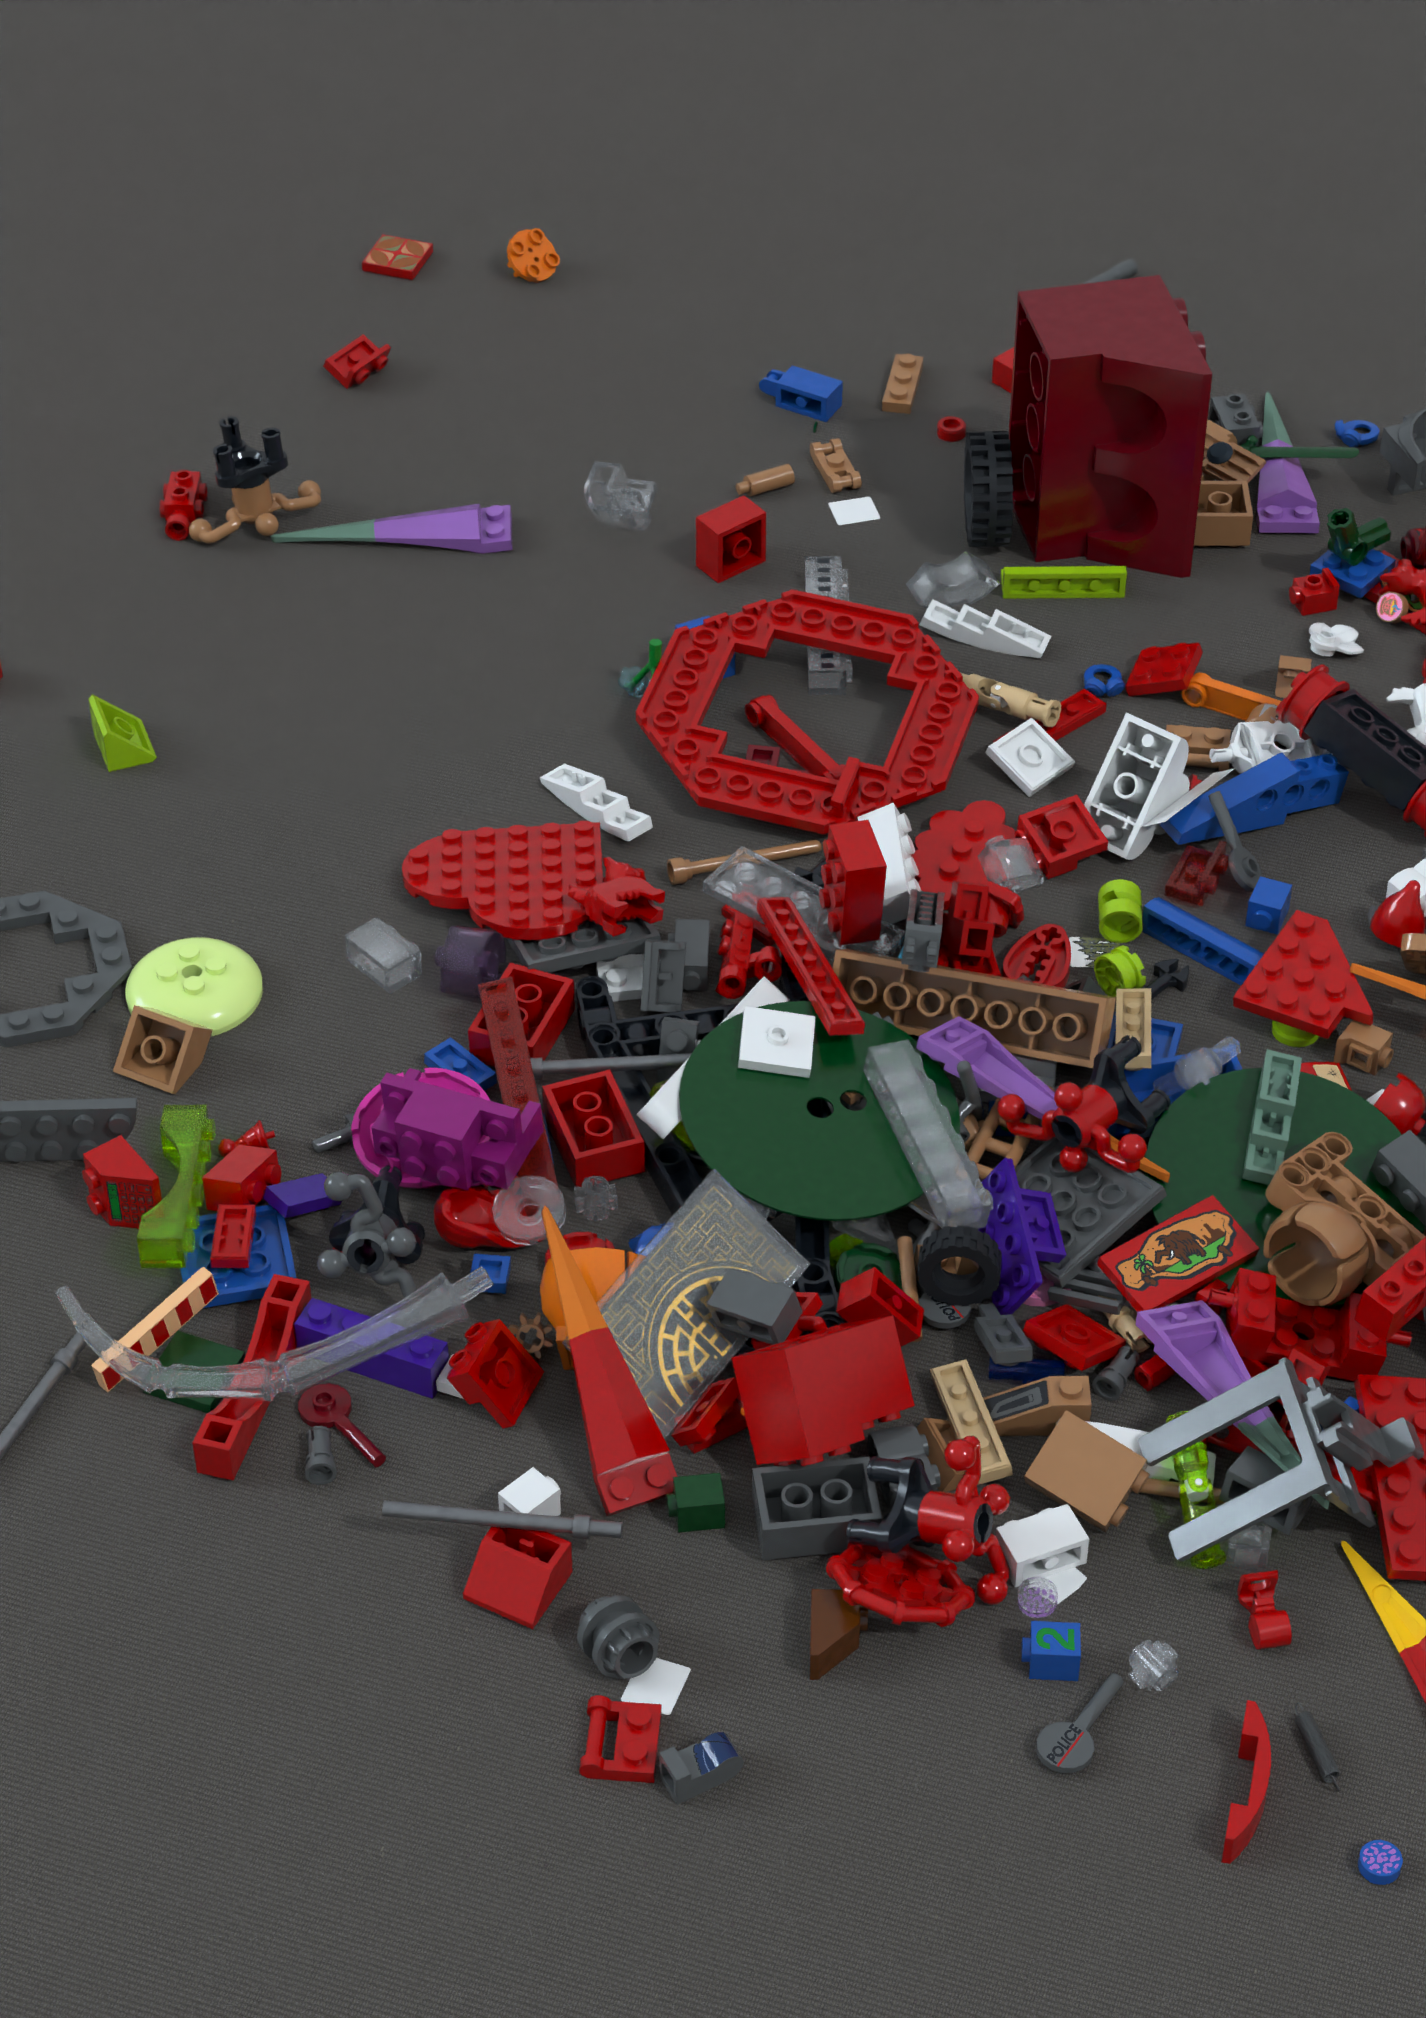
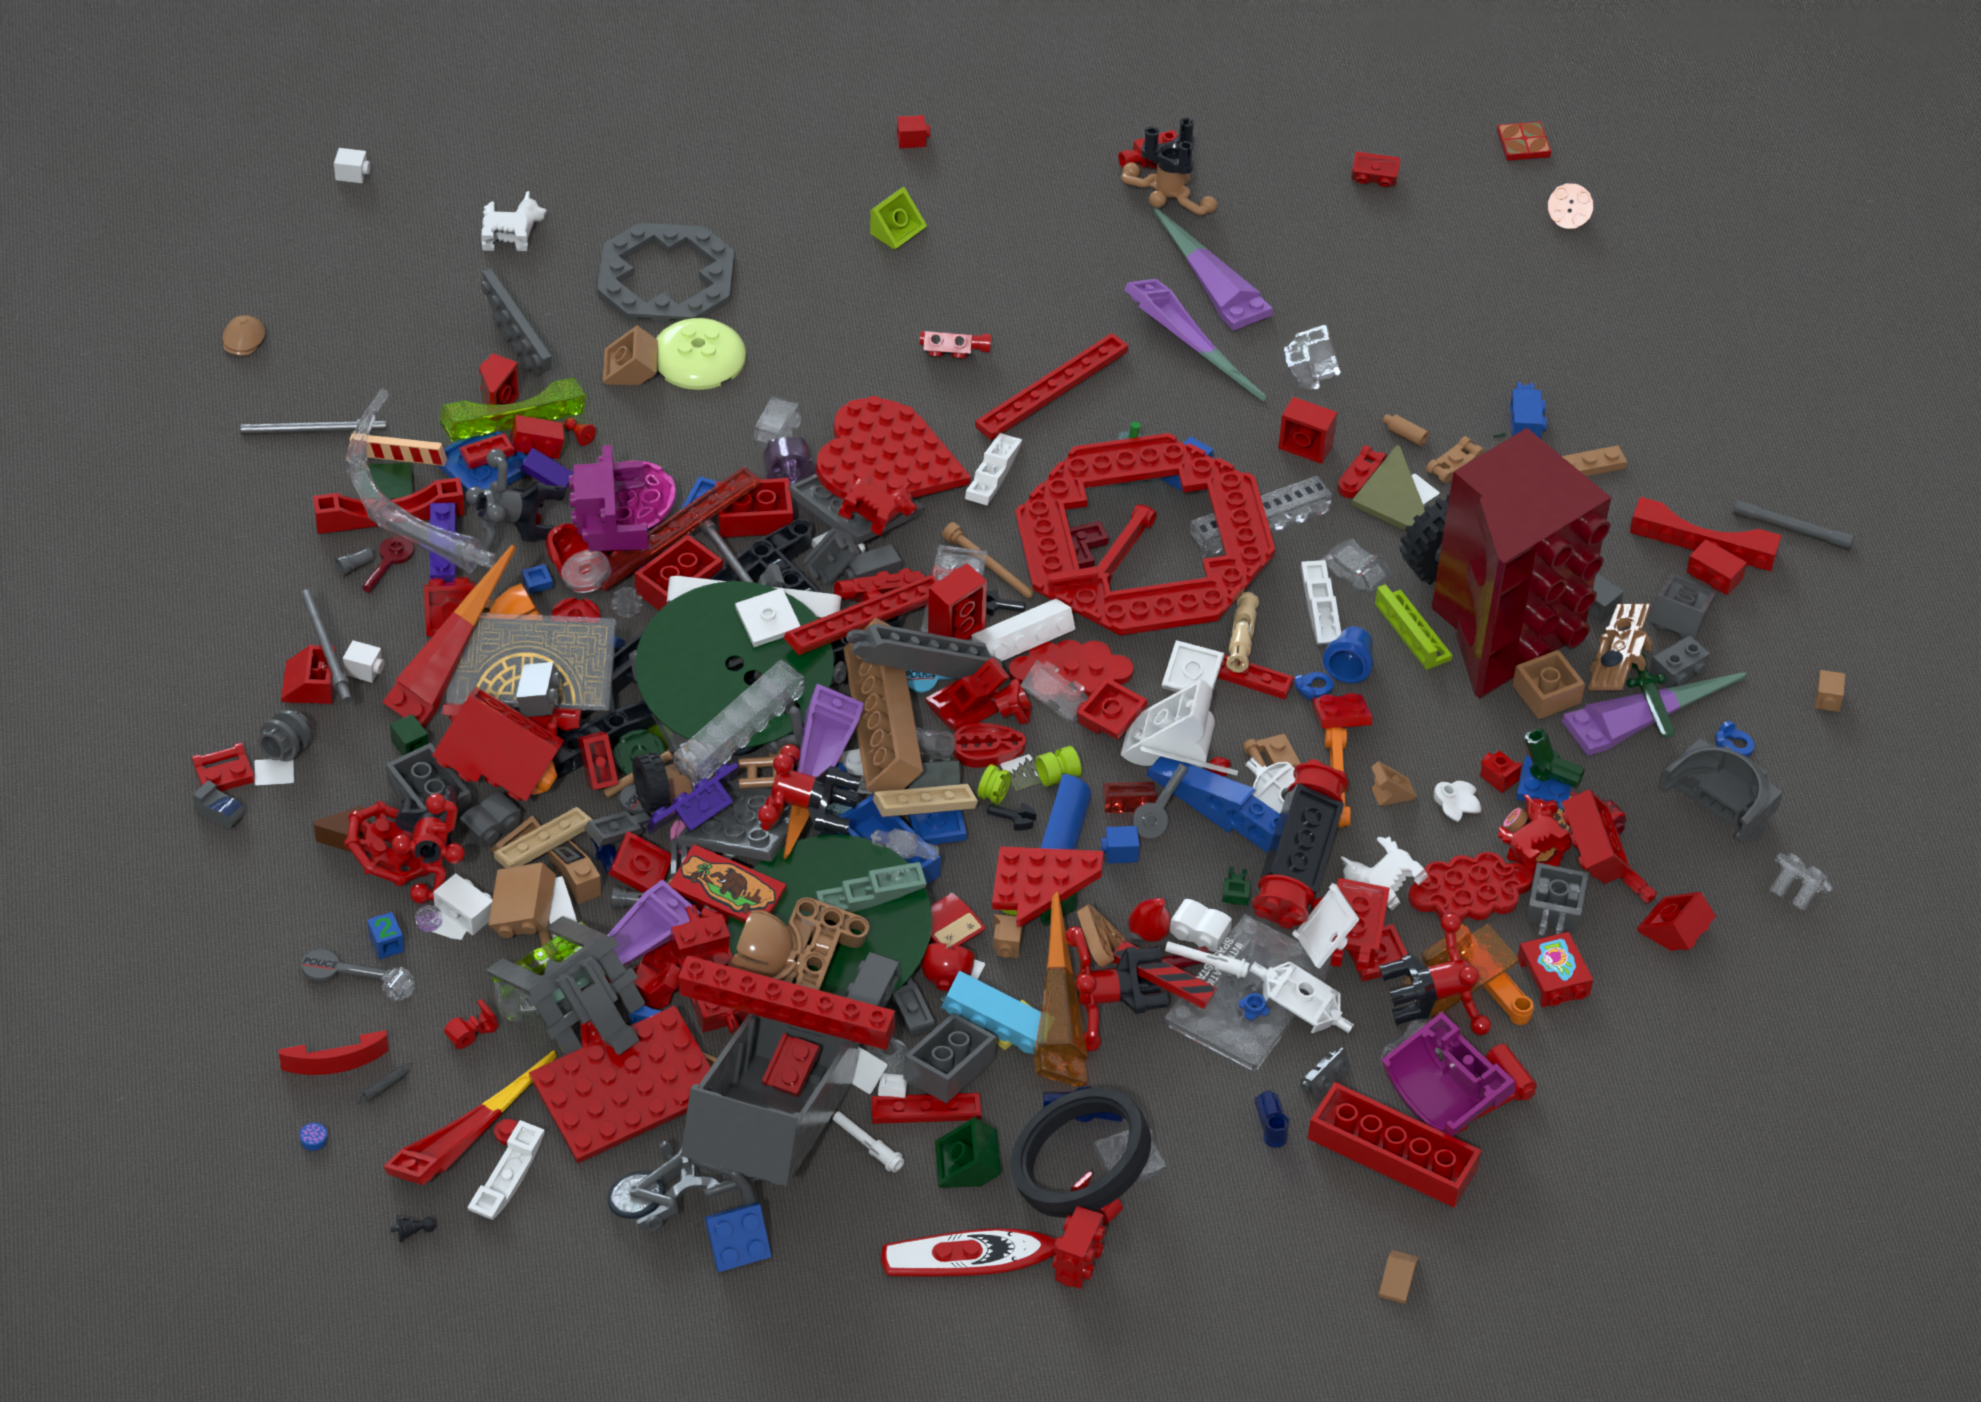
camera: 60 degrees right, 5 degrees up
(370, 758) = (948, 343): none -> brick
(452, 584) = (1165, 308): none -> medium lavender plate
(498, 711) = (1051, 386): none -> red plate
(802, 533) = (1360, 471): none -> red plate
(857, 528) = (1391, 493): none -> olive tile
(1089, 629) = (1350, 656): none -> blue piece
(1330, 348) = (1829, 690): none -> medium nougat brick
(1383, 842) = (1236, 889): none -> dark green plate

